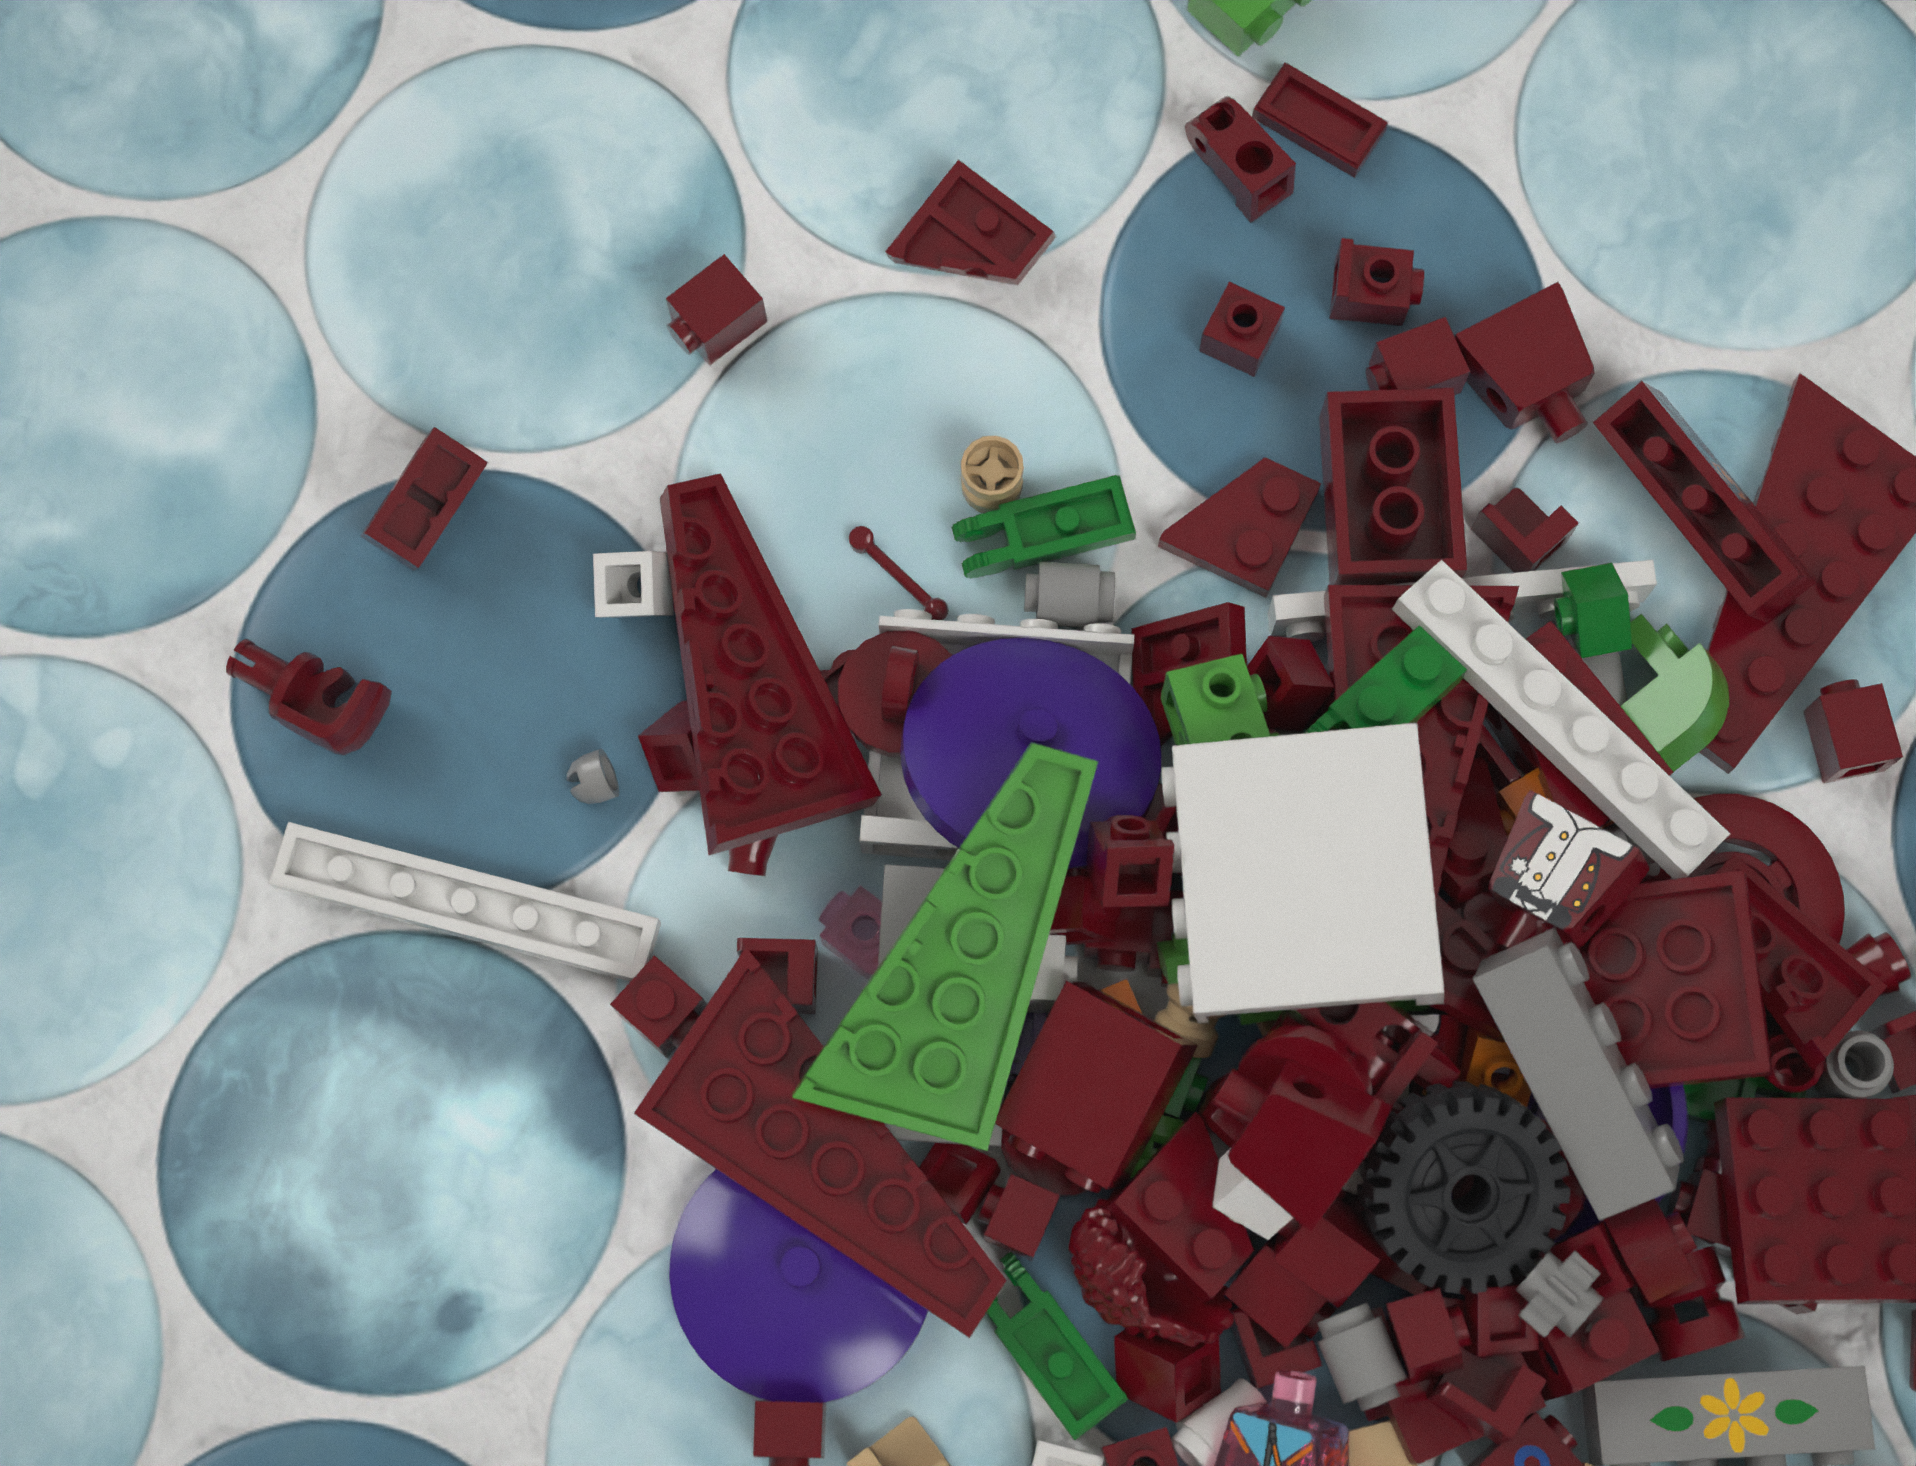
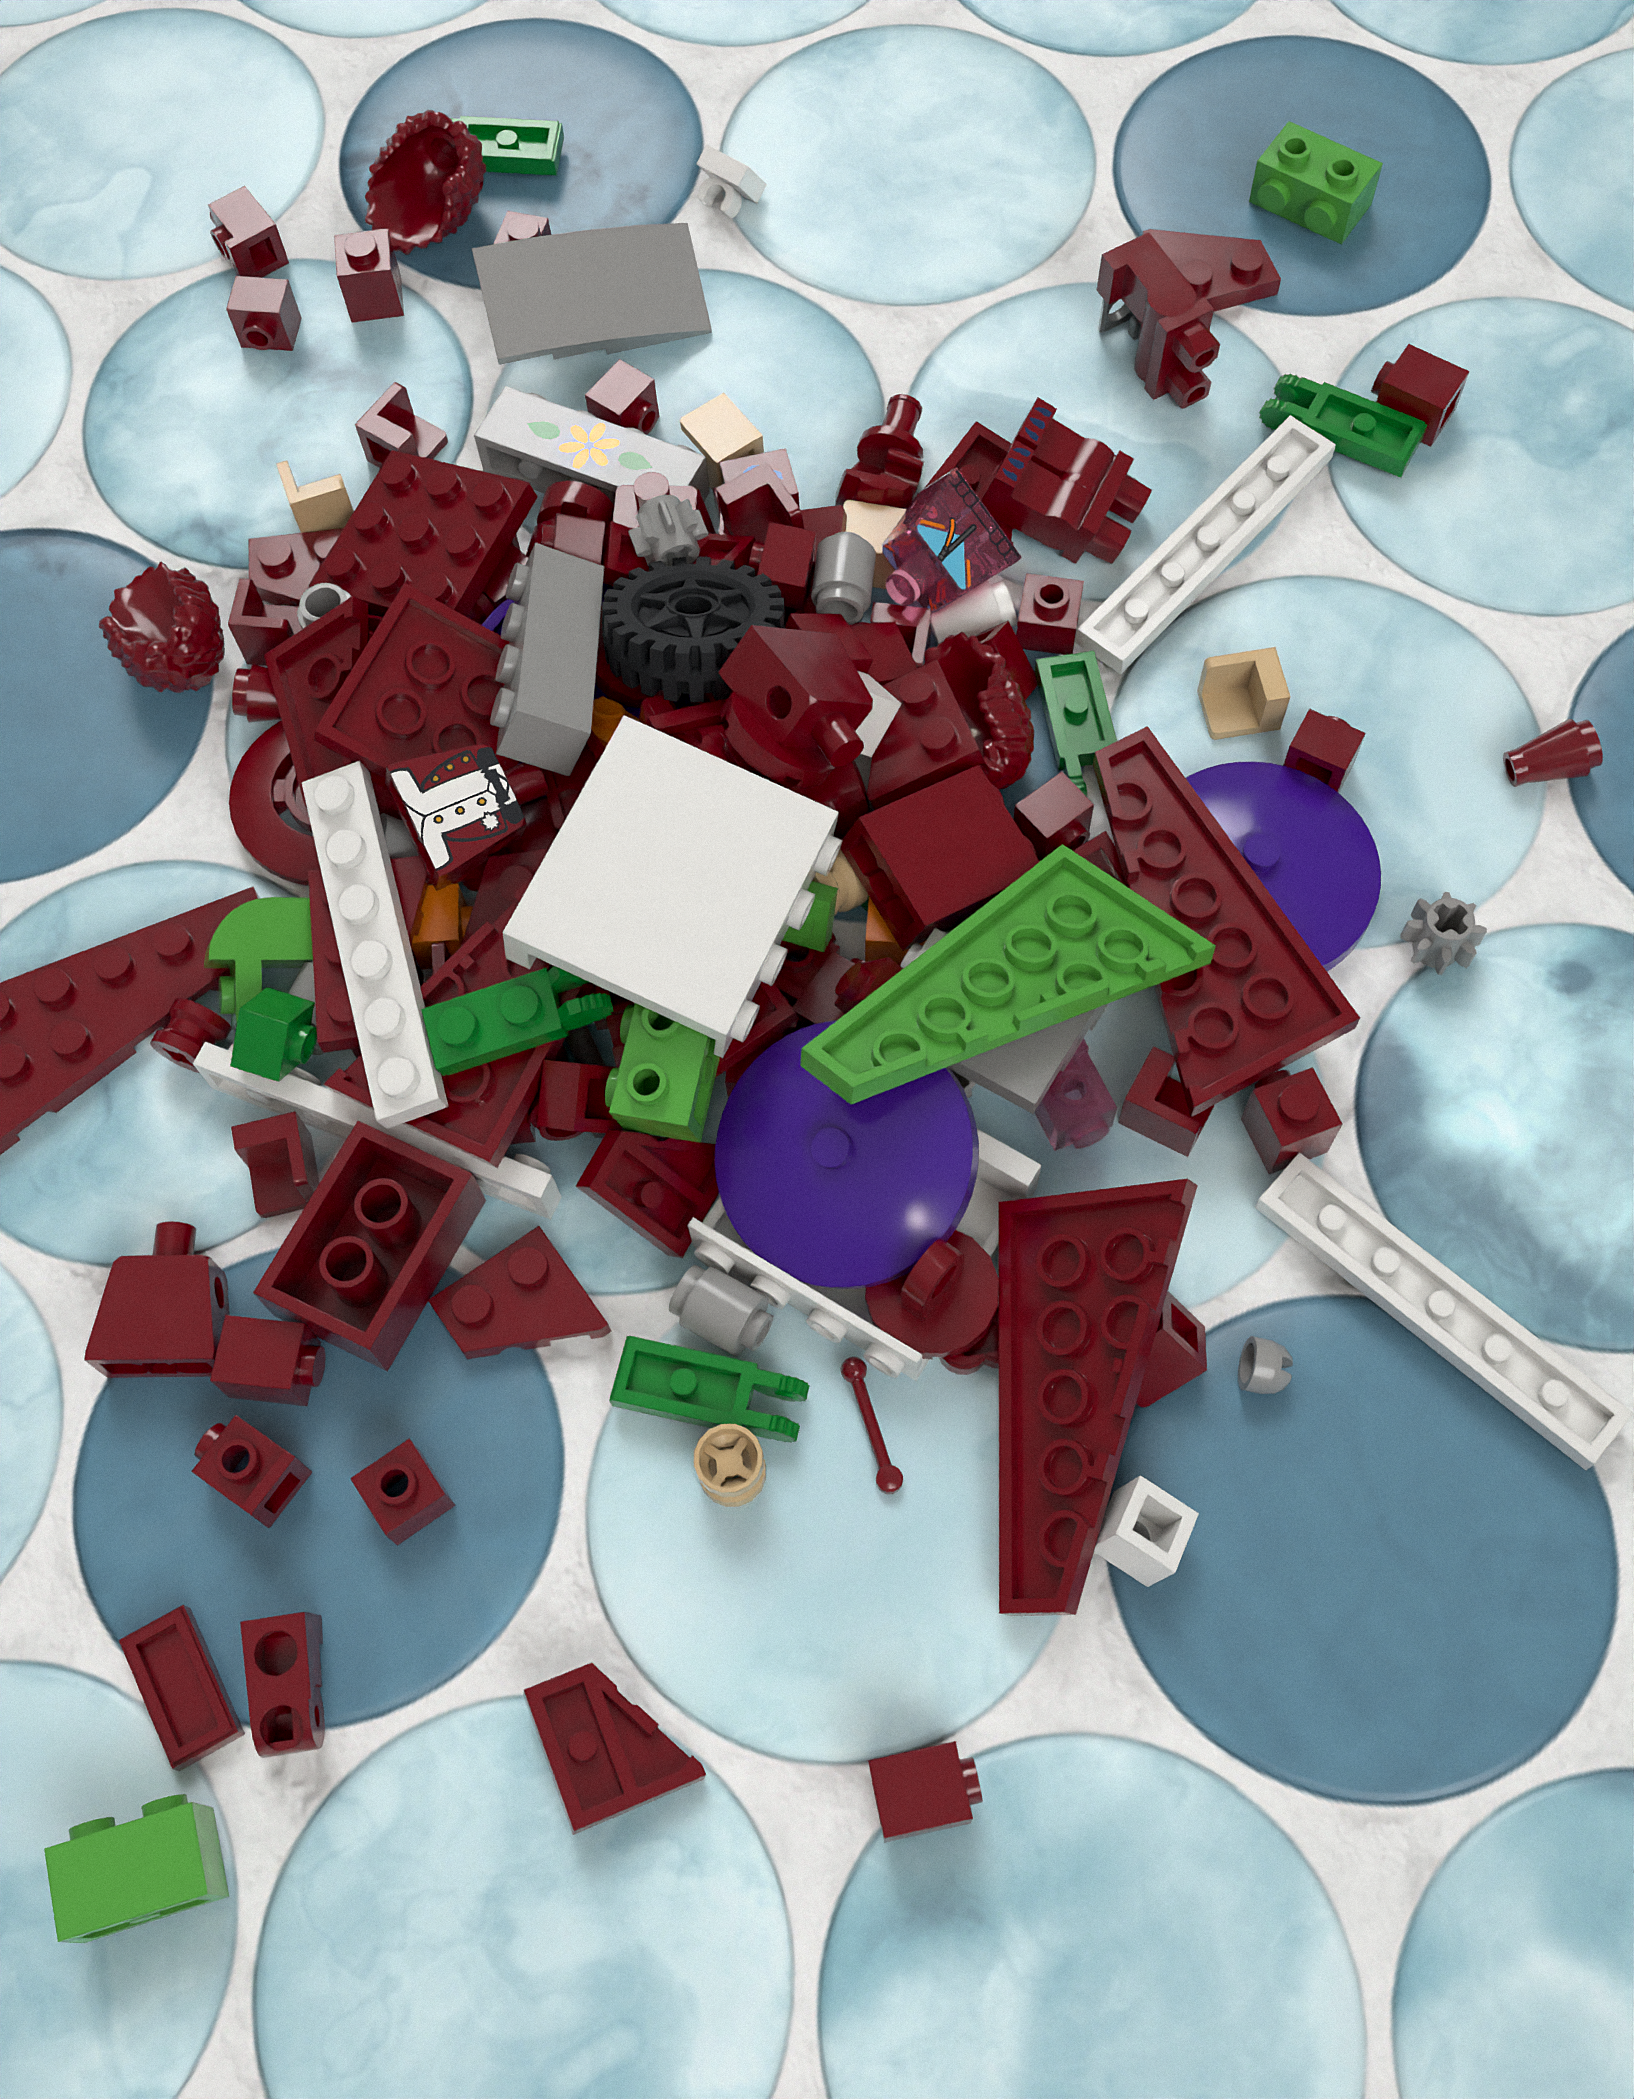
camera: 150 degrees left, 10 degrees down
(306, 697) = (1533, 1579): dark red piece -> none
(424, 499) = (1331, 1733): dark red brick -> none
(591, 1262) = (1443, 933): none -> light grey gear
(1129, 847) = (818, 975): dark red brick -> none
(1684, 598) = (188, 1031): none -> dark red wheel
(1704, 502) = (112, 1090): dark red brick -> none
(1852, 731) = (139, 864): dark red brick -> none

